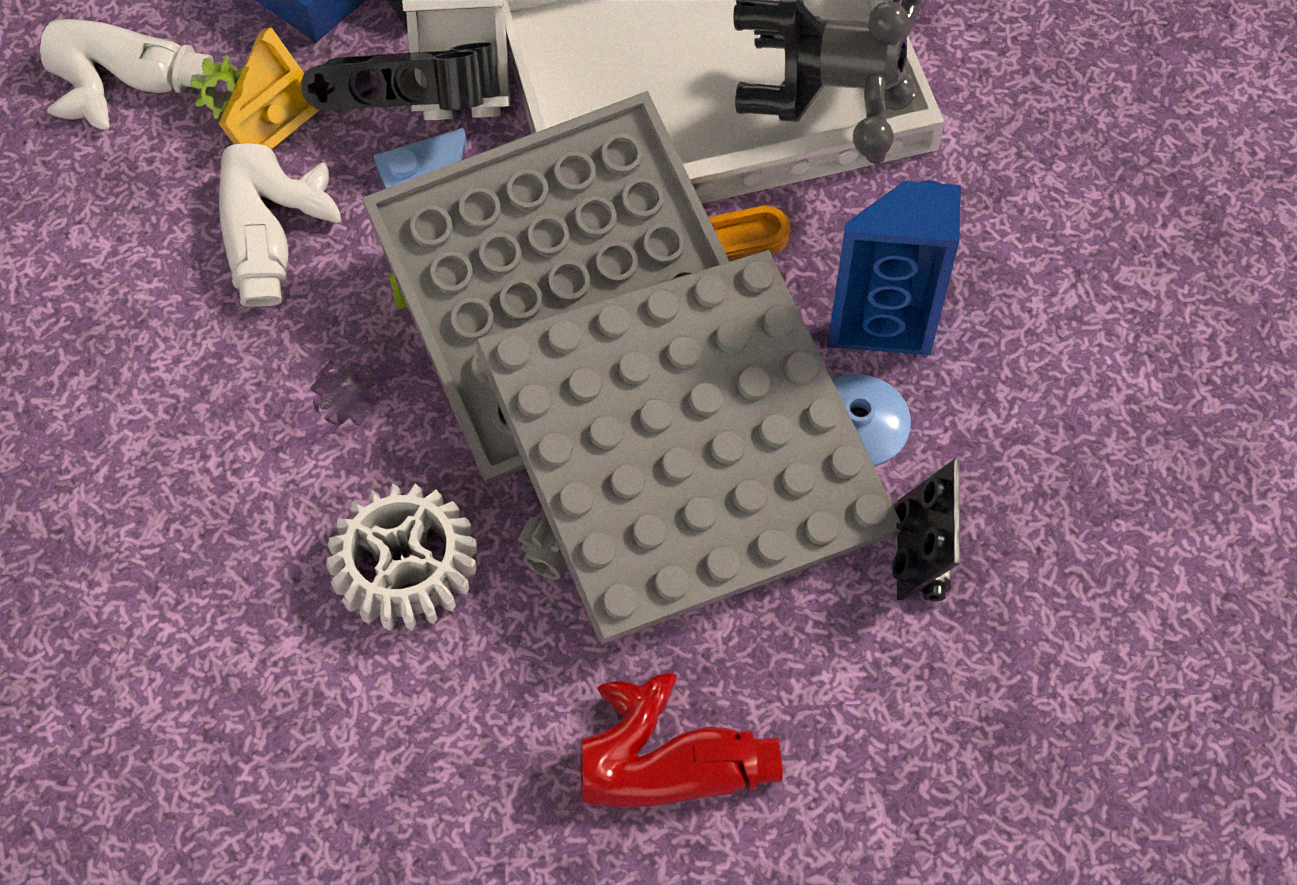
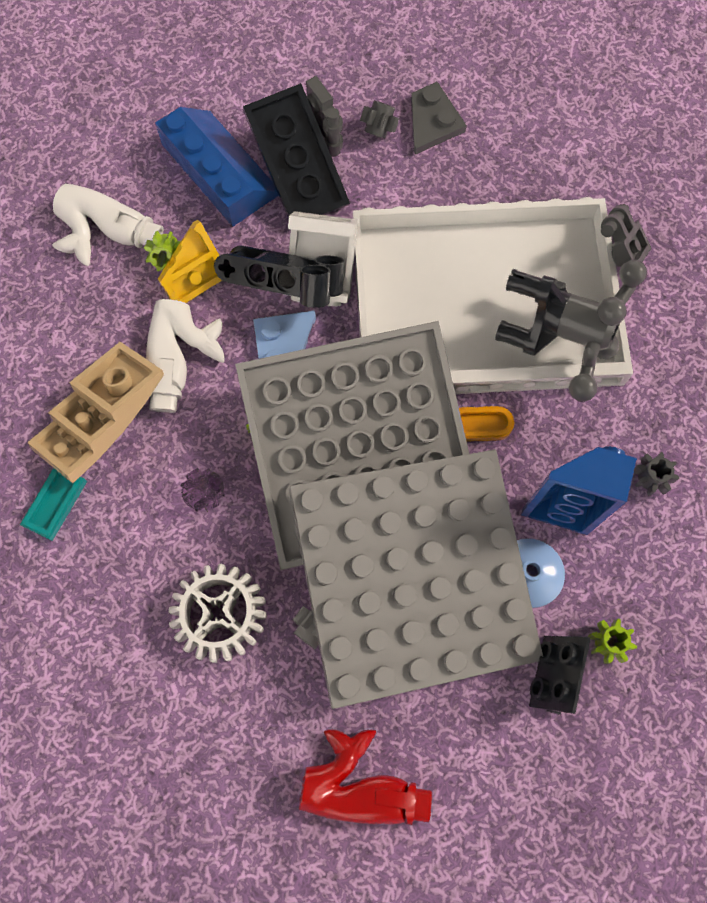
camera: 10 degrees right, 10 degrees up
(117, 459) = (52, 505): none -> teal tile
(162, 318) = (97, 411): none -> tan slope
(997, 481) = (619, 648): none -> lime gear
(1008, 250) = (647, 476): none -> dark grey gear

